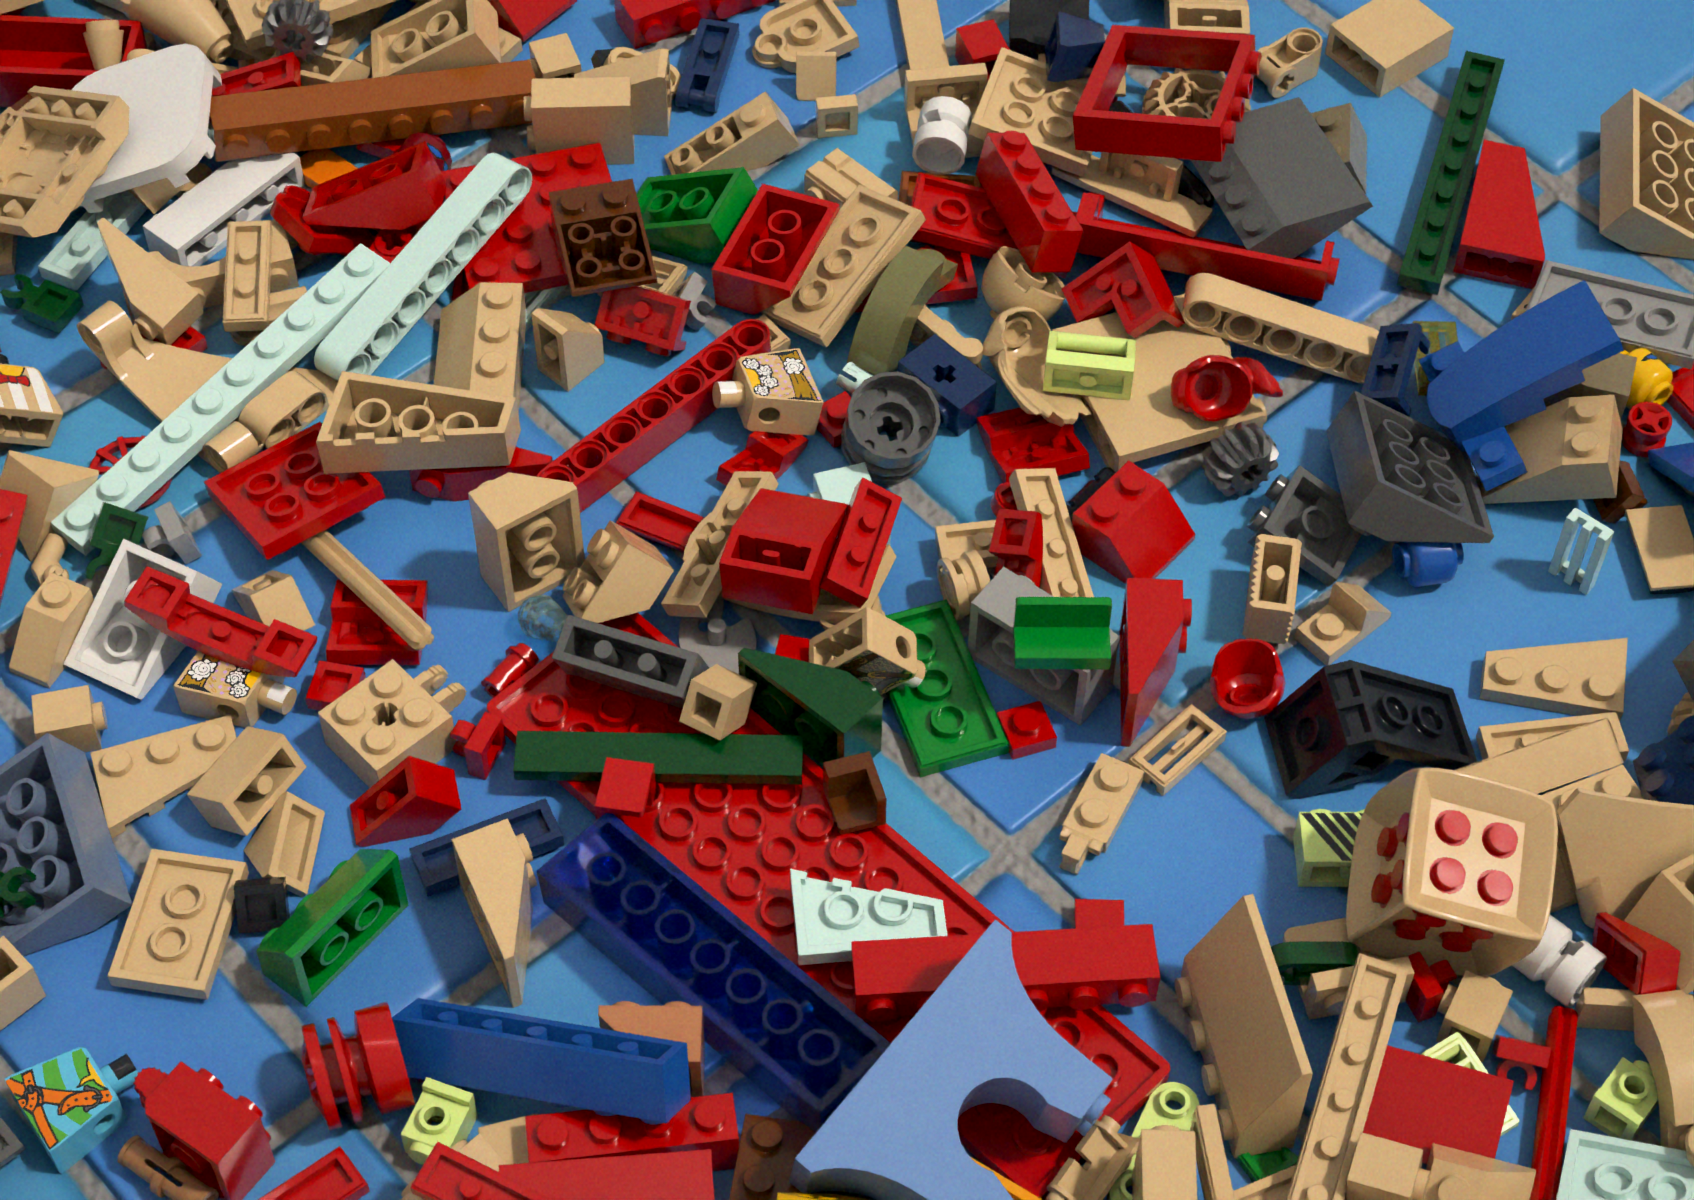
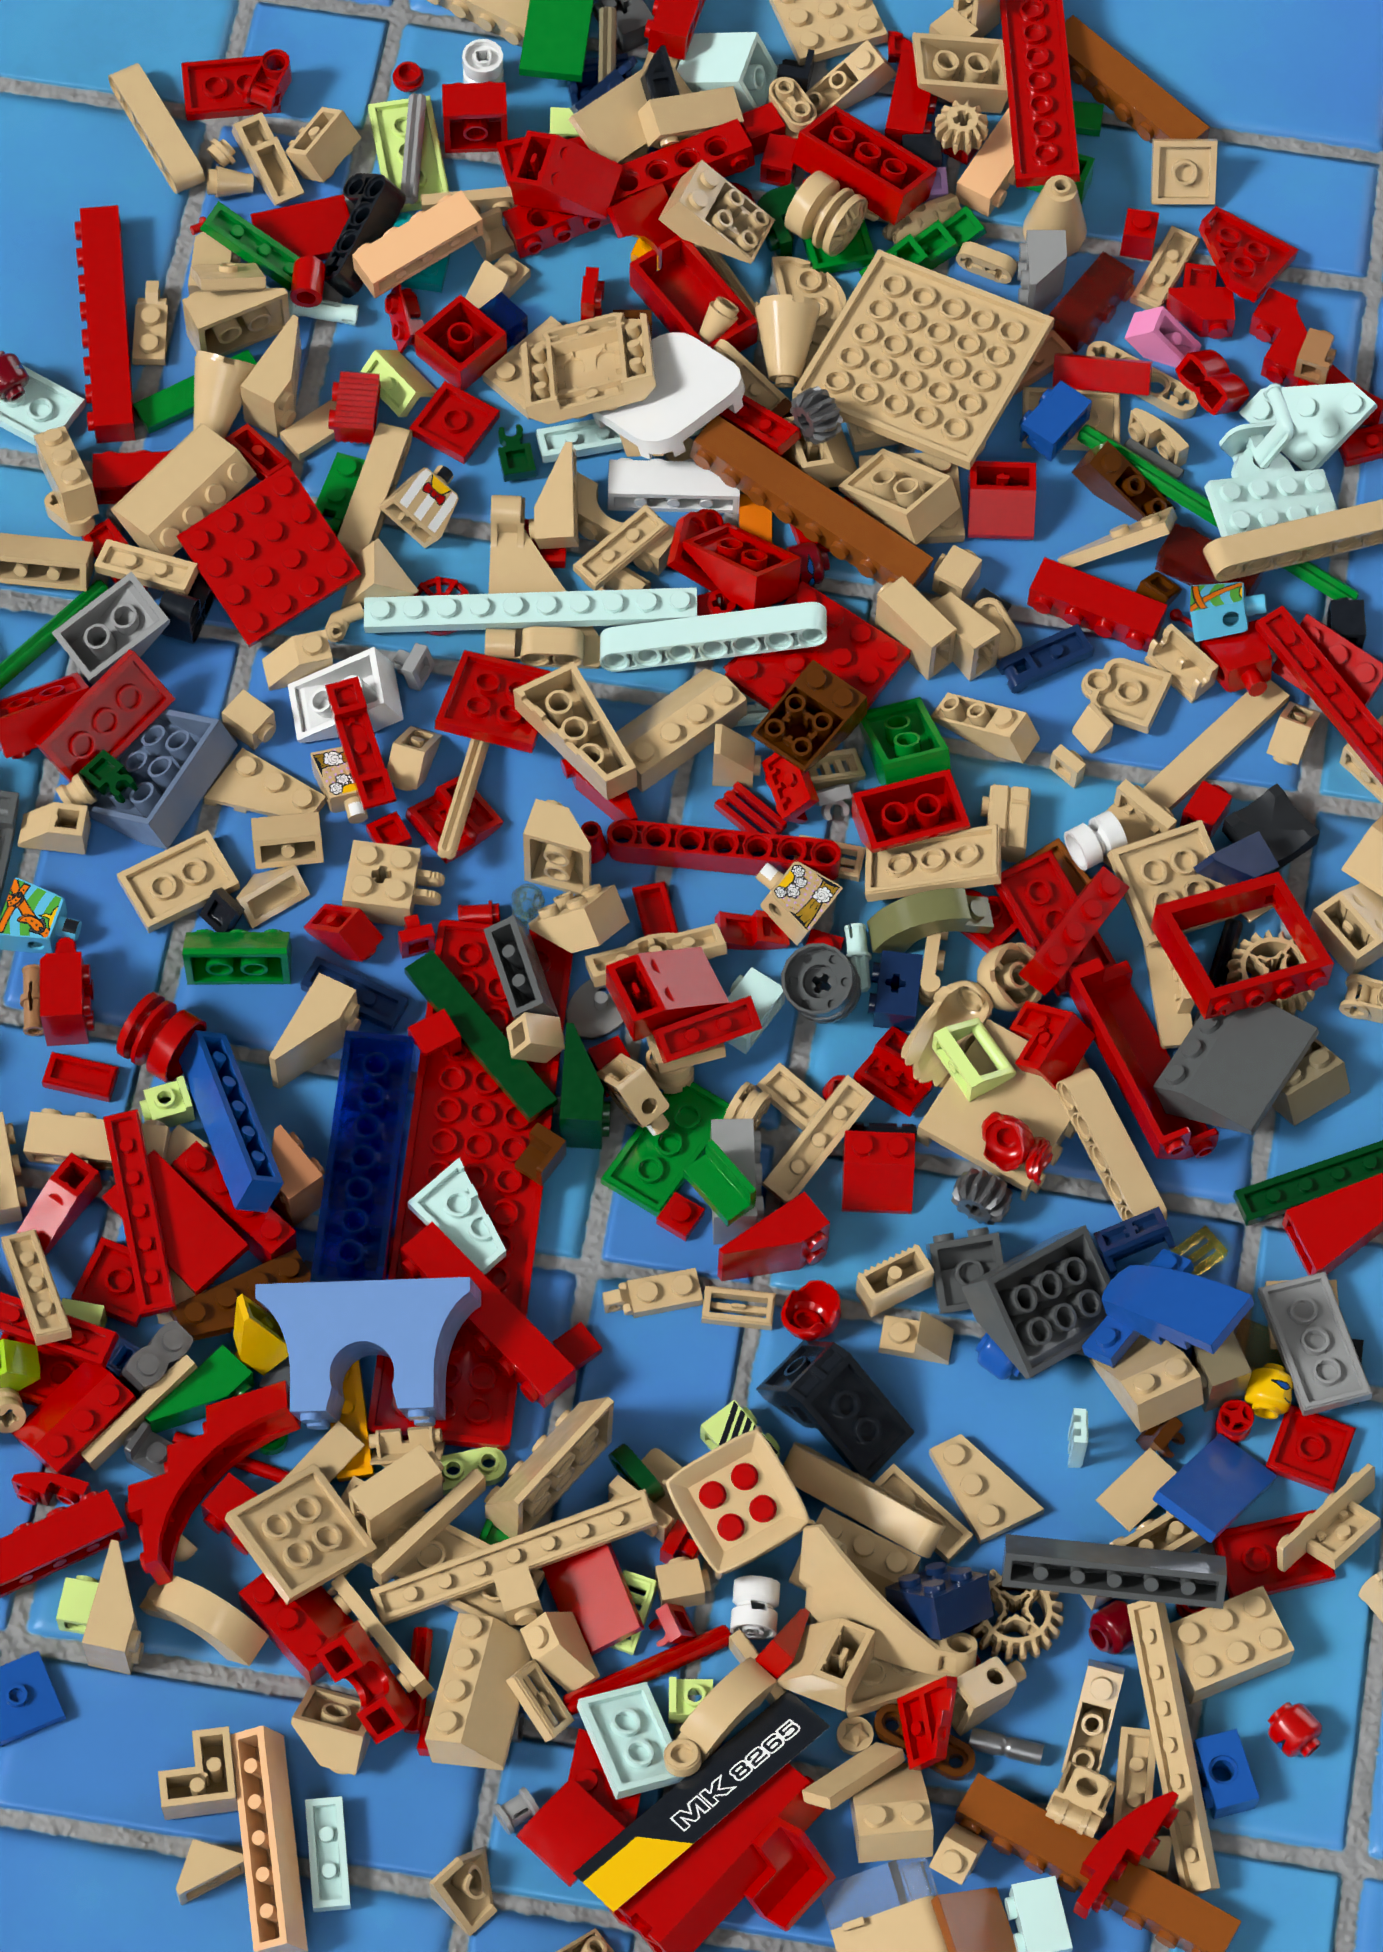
camera: 50 degrees right, 10 degrees up
(109, 530) = (385, 636): dark green plate -> none
(631, 372) = (739, 790): none -> red tile
(1018, 543) = (794, 1118): red slope -> none

